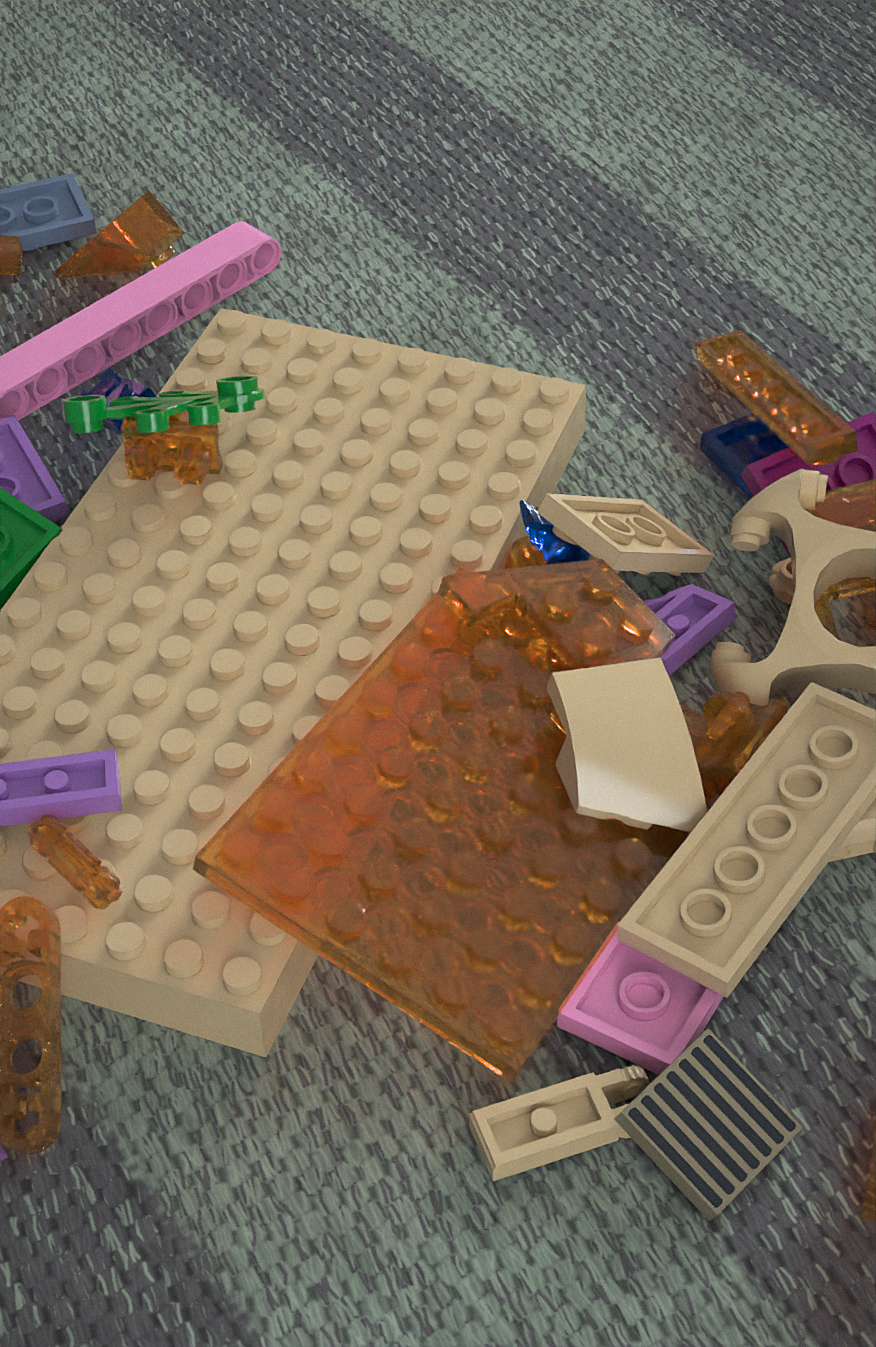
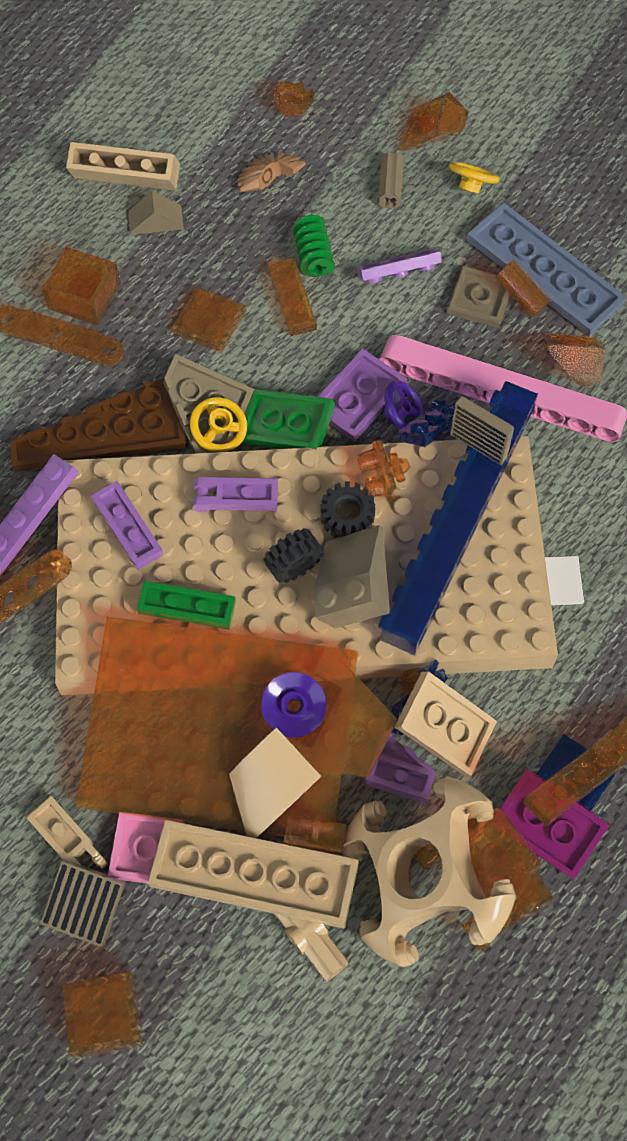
camera: 65 degrees right, 20 degrees up
(56, 435) = (398, 407): none -> dark purple piece
(74, 862) = (97, 565): clear orange axle -> none
(76, 632) = (235, 494): none -> medium lavender plate
(152, 413) = (430, 479): green plant -> none
(211, 280) = (481, 430): none -> dark tan tile
(216, 528) = (347, 495): none -> black tyre
(238, 755) = (186, 605): none -> green plate
(252, 576) = (293, 555): none -> black tyre
(320, 398) = (452, 529): none -> clear blue brick
(338, 520) = (352, 579): none -> dark tan slope
(512, 656) = (293, 687): none -> dark purple dish

